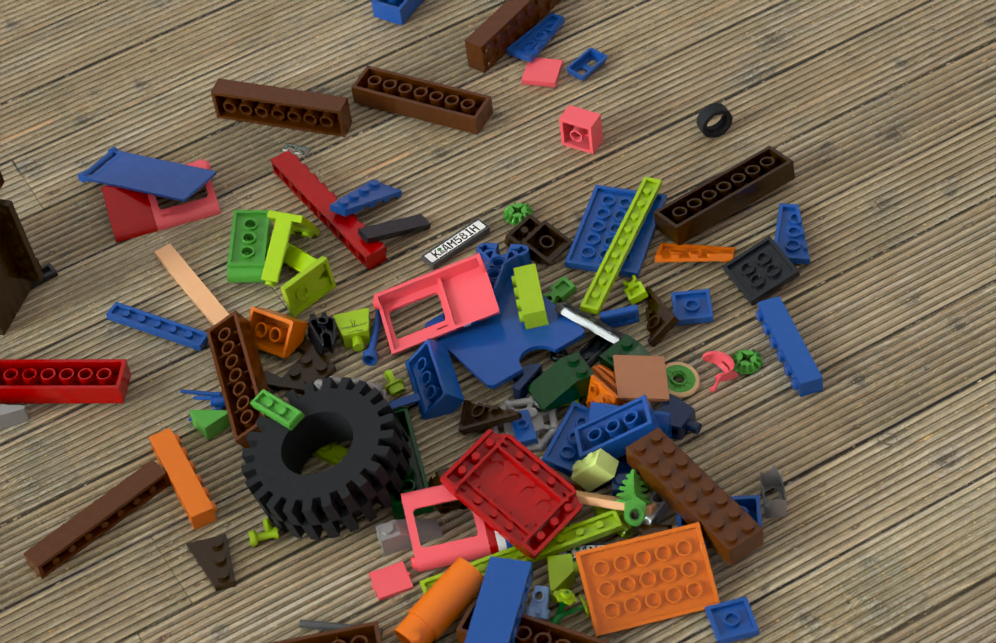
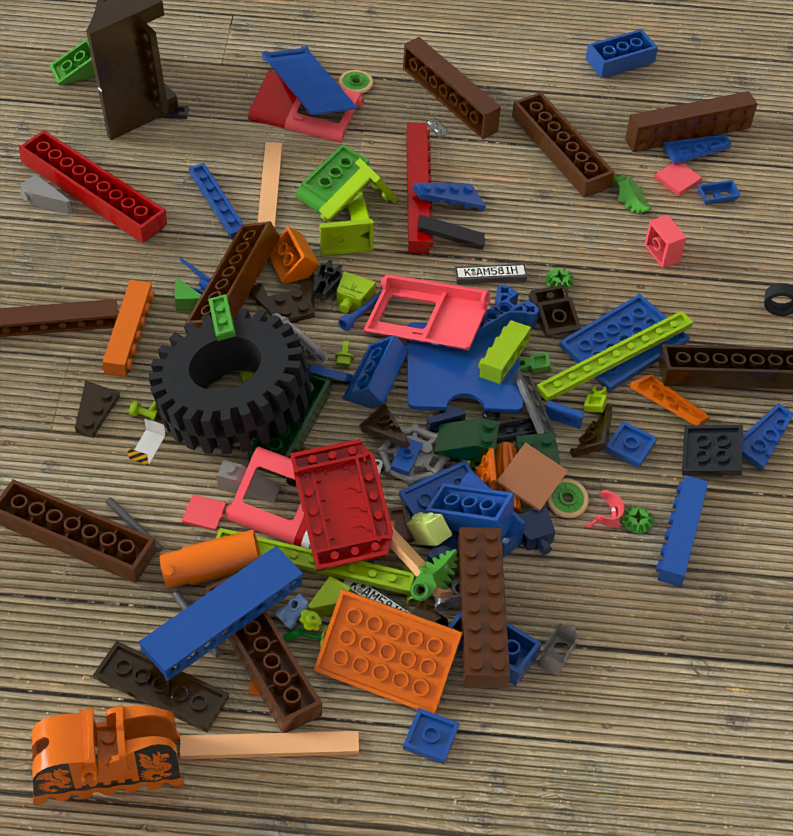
camera: 25 degrees right, 5 degrees up
(195, 147) = (365, 81): none -> bright green wheel
(289, 557) = (148, 443): none -> white sticker
(516, 109) = (631, 194): none -> bright green plant

